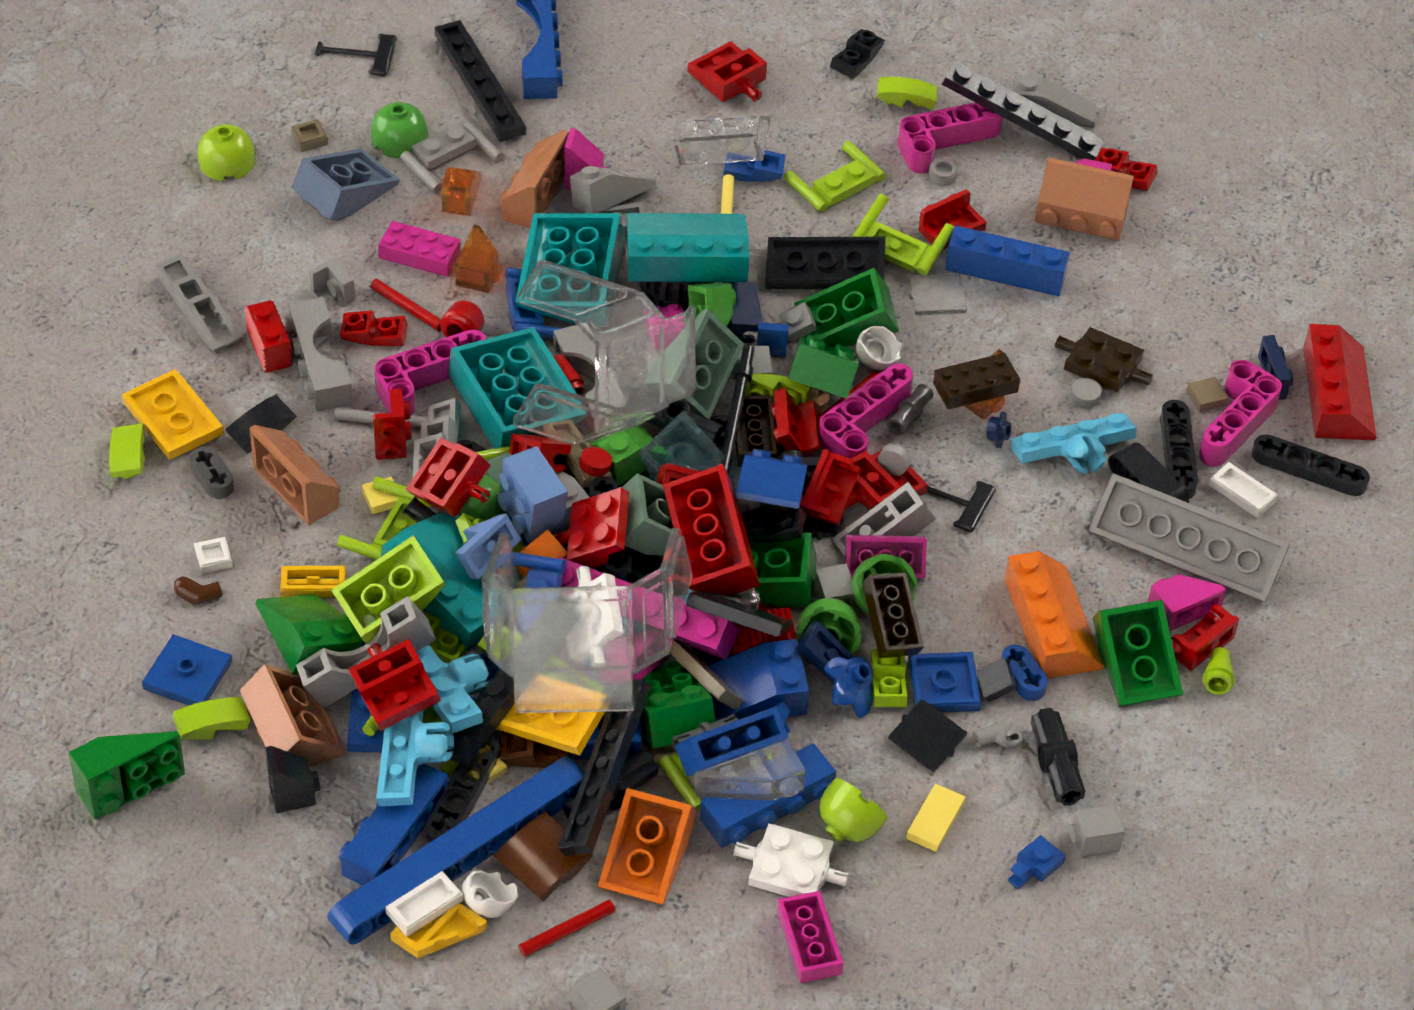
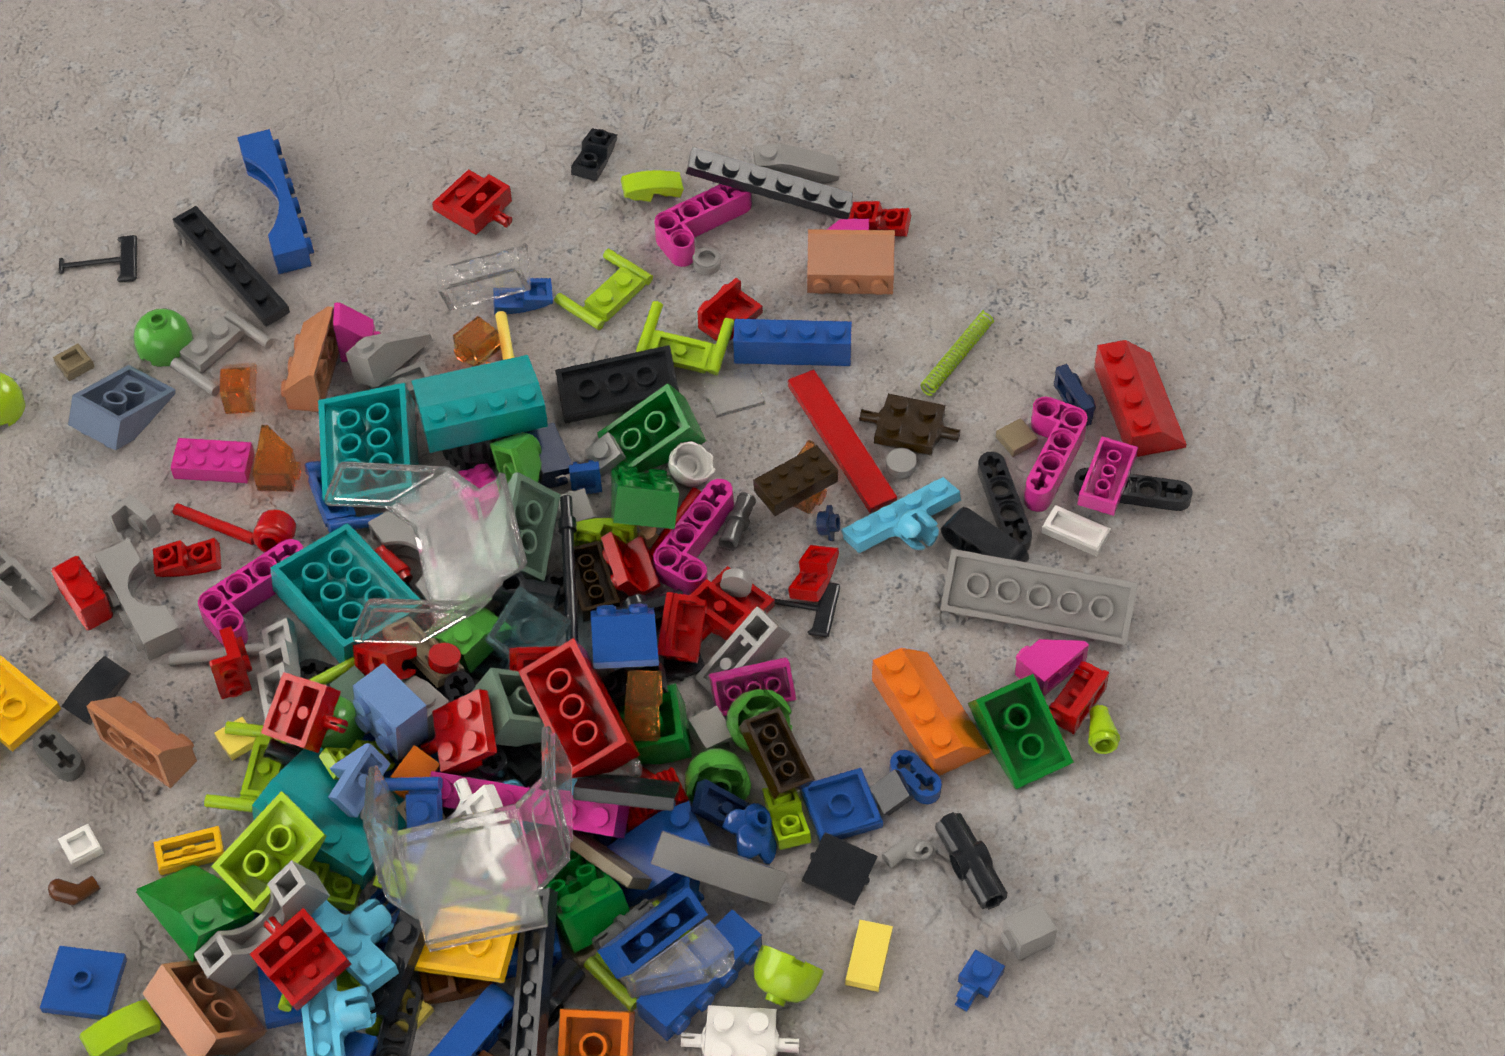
camera: 10 degrees left, 5 degrees up
(698, 195) = (476, 342): none -> clear orange brick
(773, 541) = (643, 704): none -> clear orange slope
(810, 703) = (718, 868): none -> light grey slope
(974, 471) = (815, 573): none -> red slope
(1032, 360) = (842, 441): none -> red tile
(1139, 327) = (973, 336): none -> lime piece
(1287, 444) = (1107, 476): none -> dark pink piece

